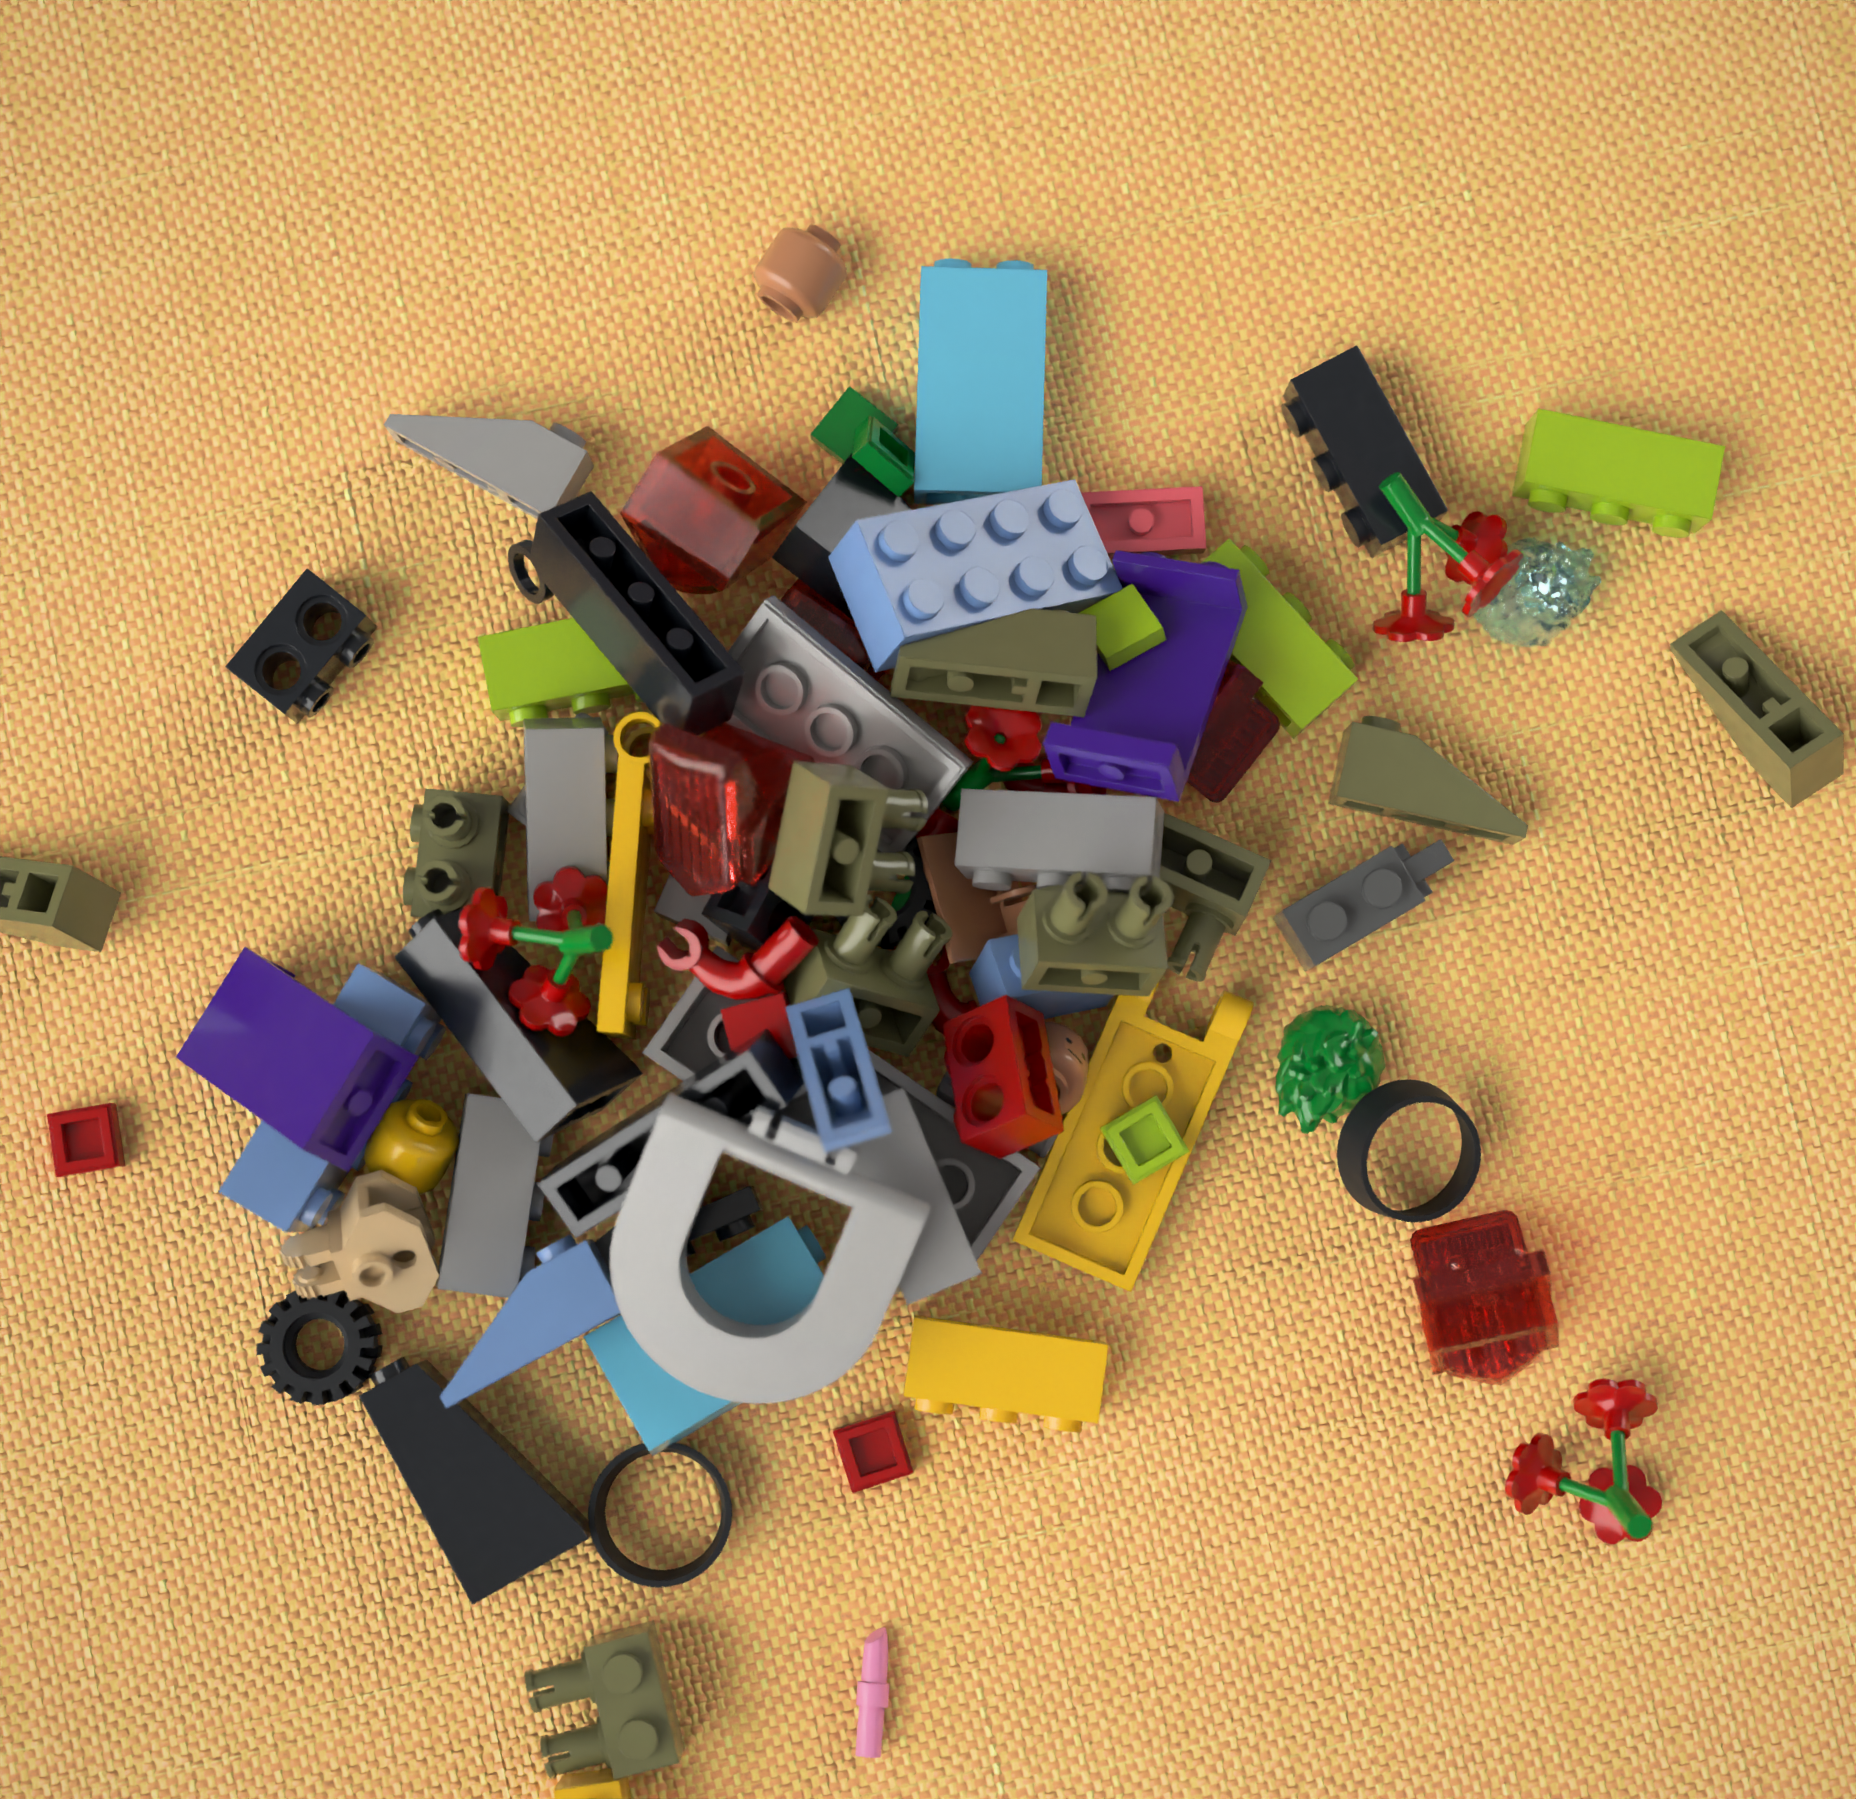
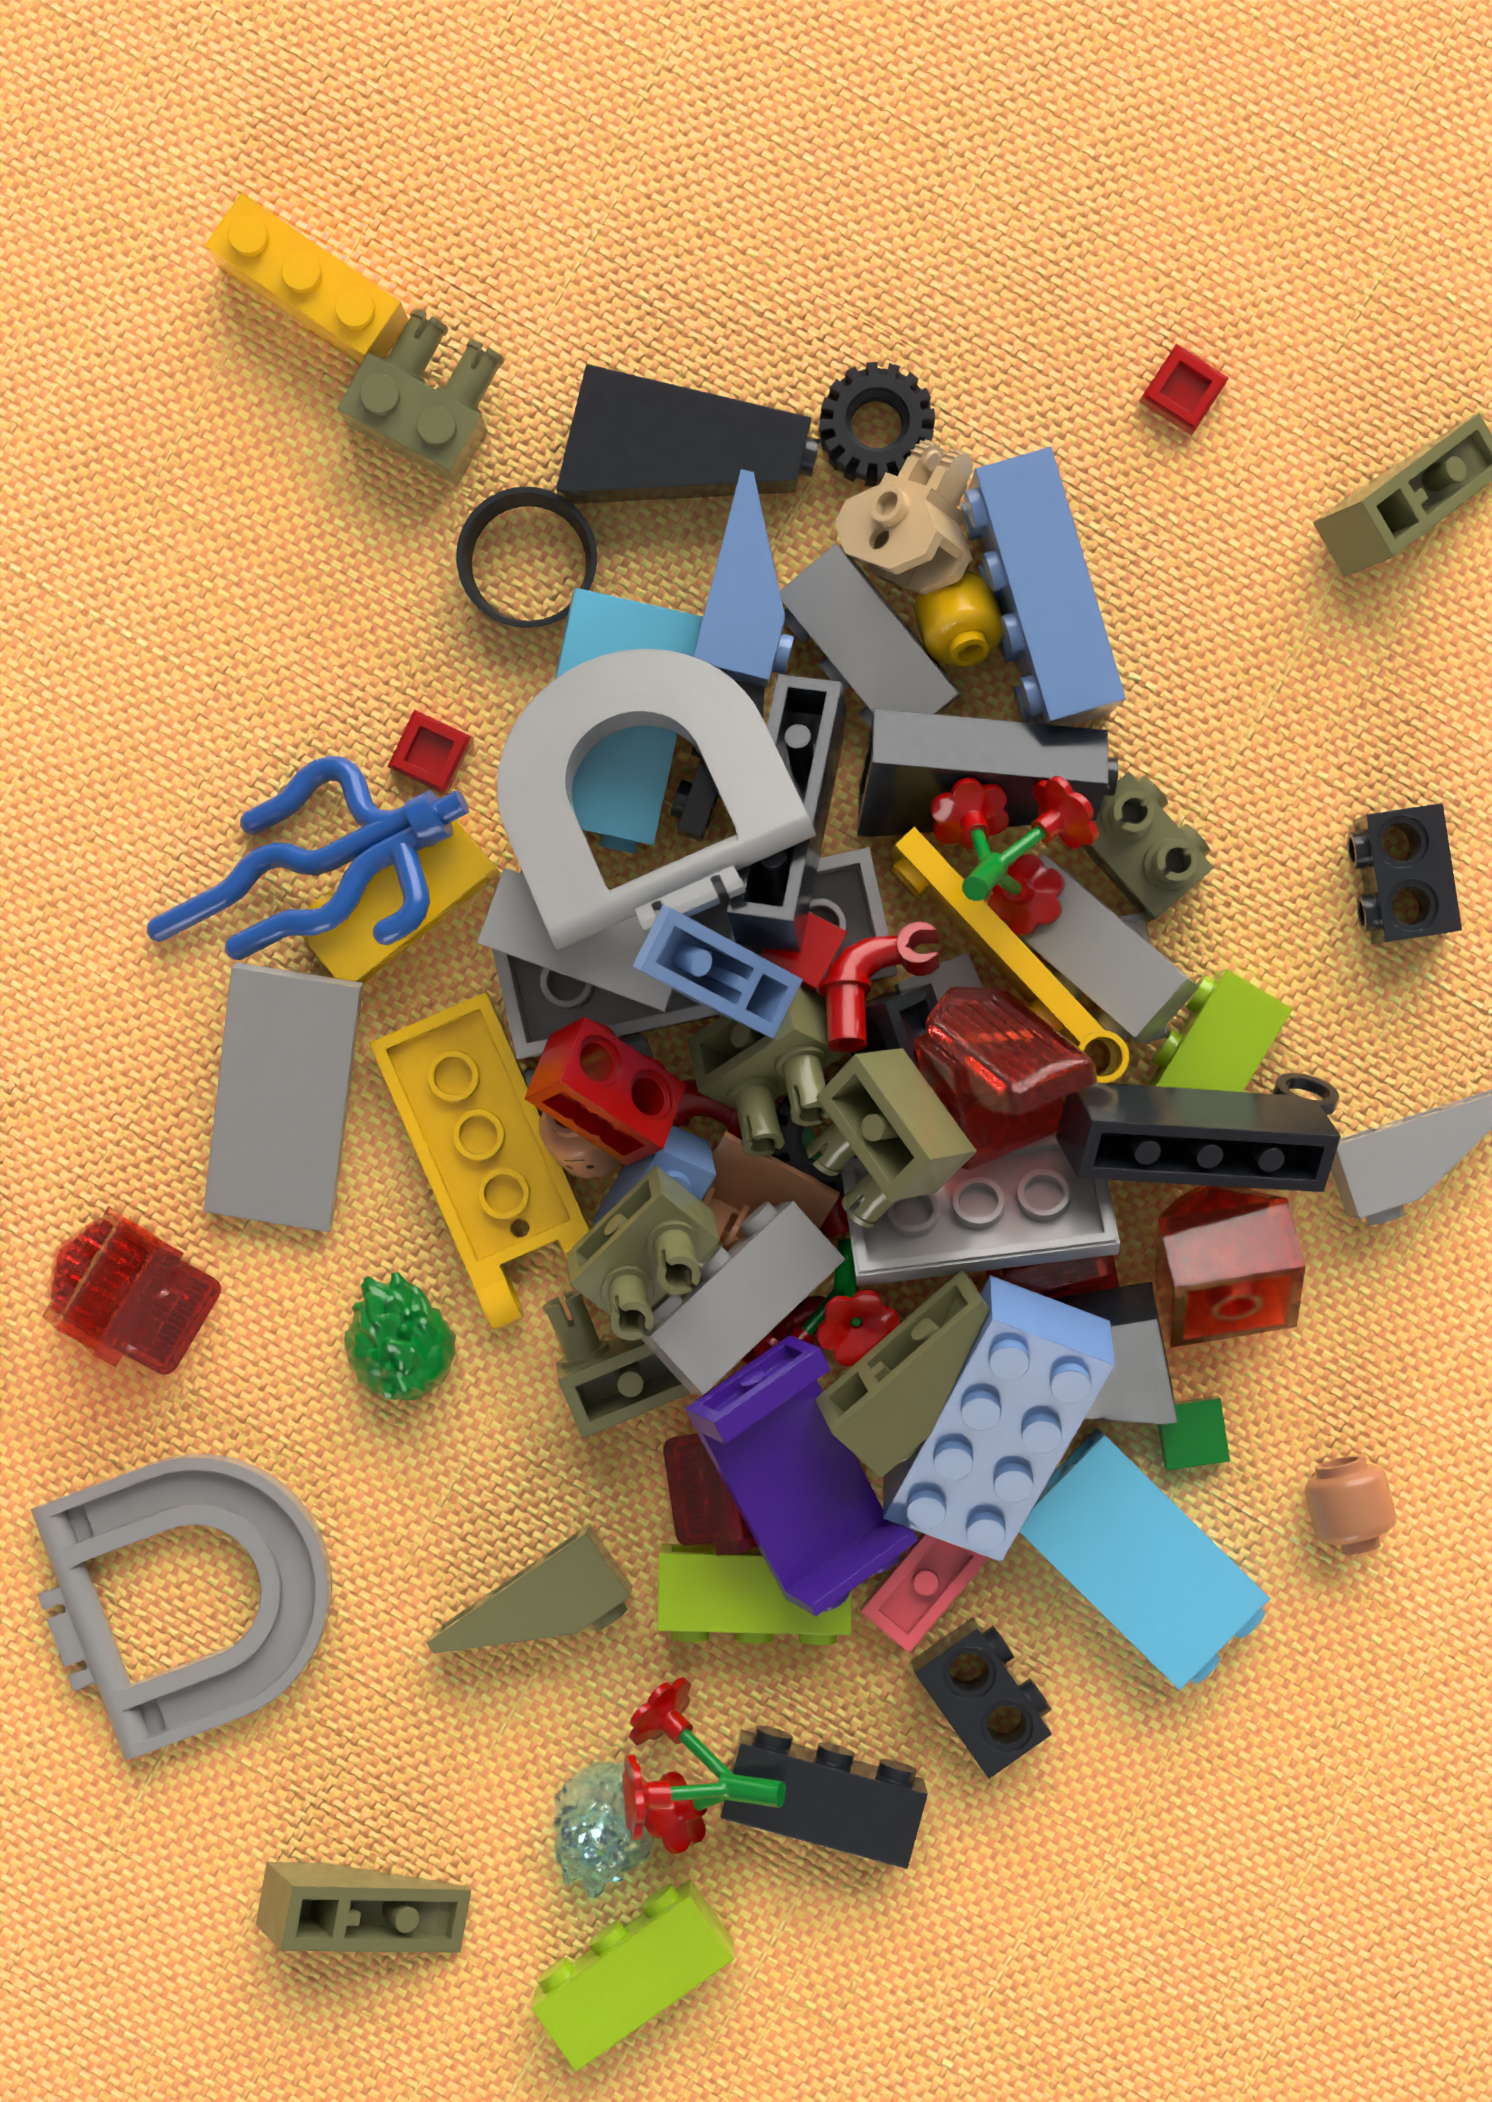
camera: 135 degrees right, 5 degrees up
(296, 1060) = (1097, 589): dark purple panel -> none
(872, 1695) = (259, 592): bright pink piece -> none
(884, 455) = (1151, 1436): green tile -> none
(974, 1421) = (382, 840): none -> blue plant
(1124, 627) = (855, 1492): lime tile -> none
(1144, 1139) = (468, 1155): lime tile -> none
(1194, 409) = (971, 1702): none -> black brick
(1230, 1318) = (282, 1096): none -> light grey tile
(1359, 902) = (493, 1476): dark grey hinge -> none
(1362, 1126) = (331, 1333): black tyre -> none
(1611, 1136) = (222, 1684): none -> light grey piece

